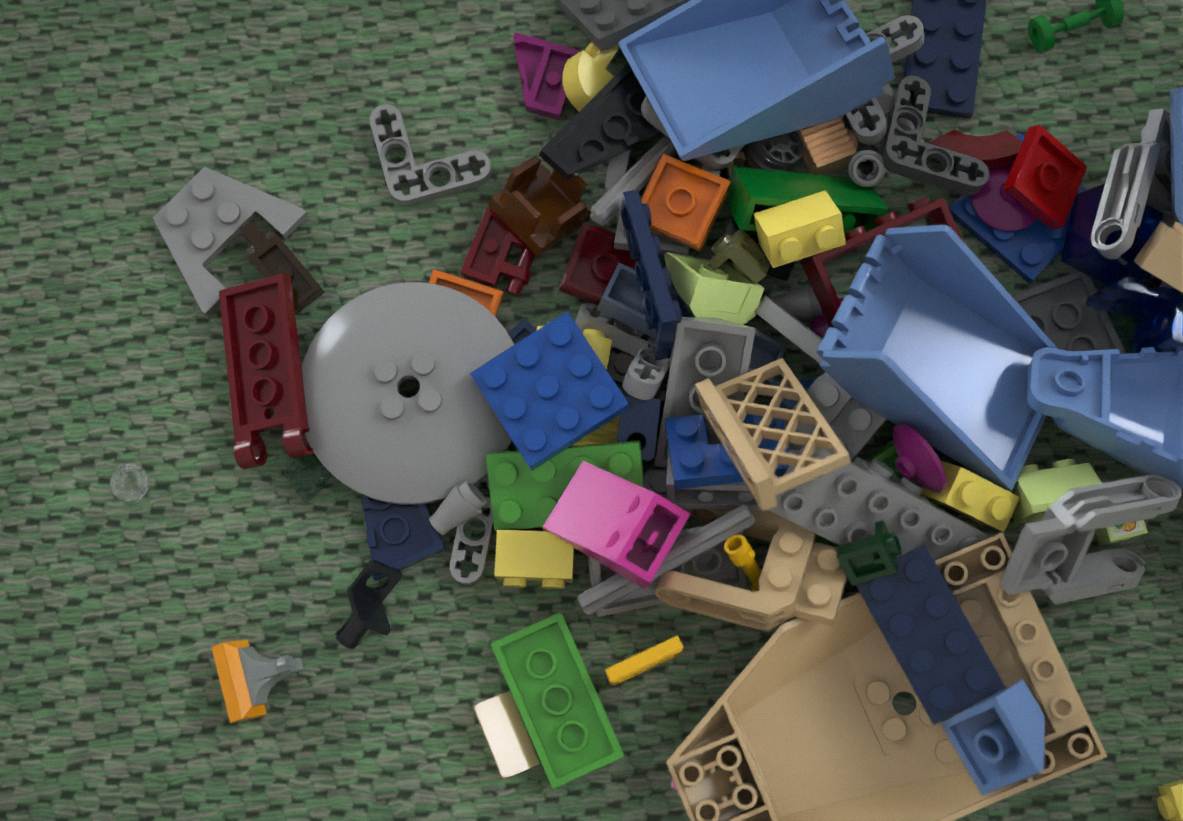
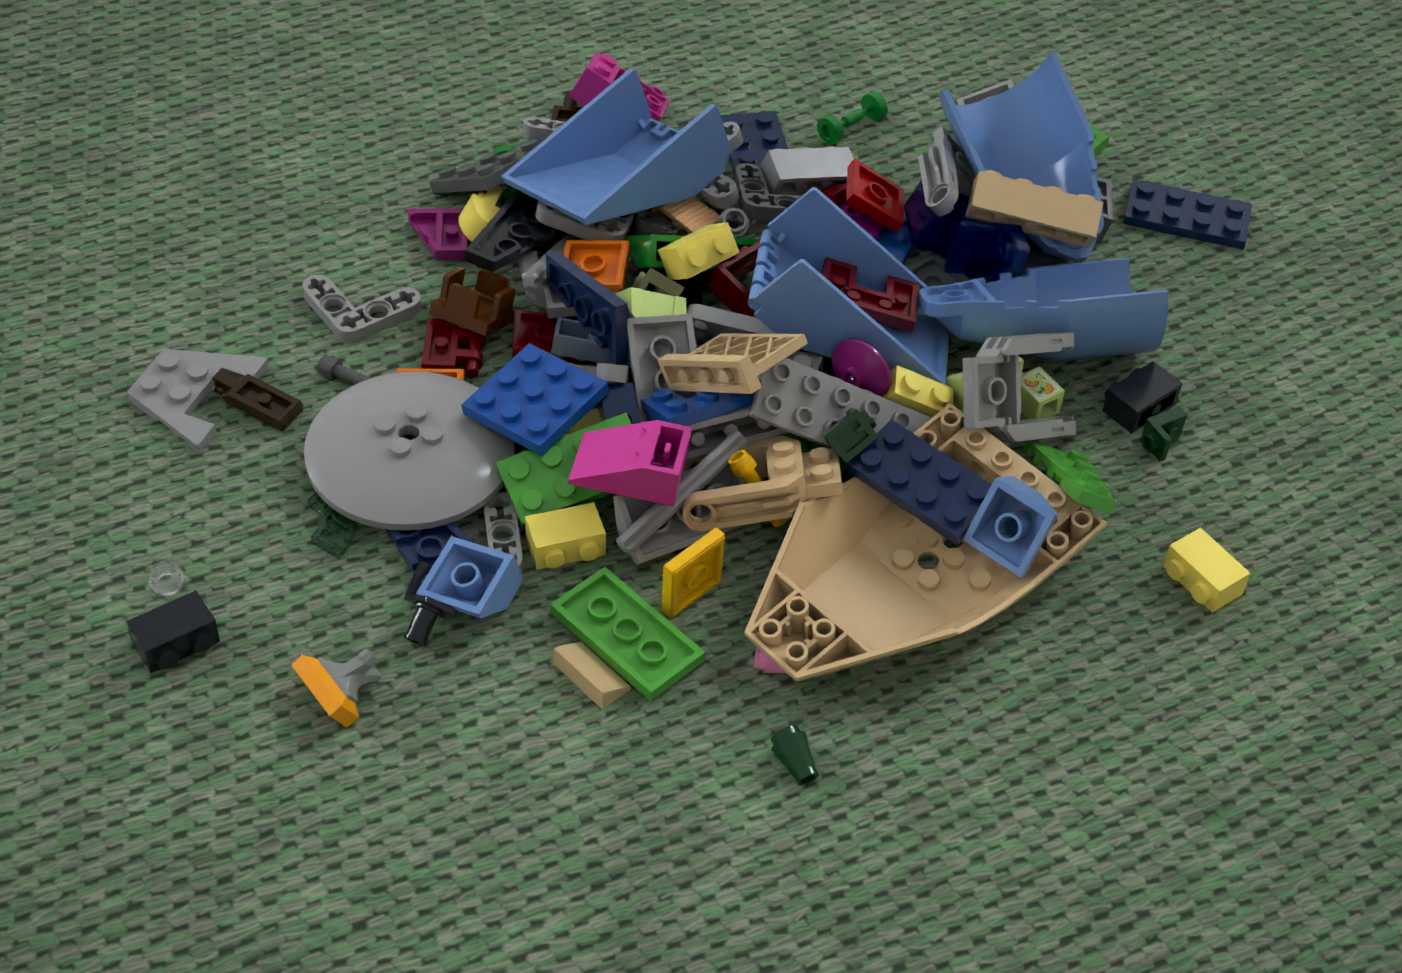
camera: 25 degrees left, 30 degrees down
(116, 559) = (173, 632): none -> black brick
(264, 368) = (269, 460): dark red hinge -> none
(370, 243) = (332, 367): none -> dark grey bar
(415, 597) = (472, 578): none -> medium blue slope
(459, 506) = (484, 511): light grey cone -> none
(985, 105) = (803, 168): none -> light grey brick
(989, 371) = (894, 307): none -> dark red plate
(1105, 671) = (1074, 473): none -> bright green wing

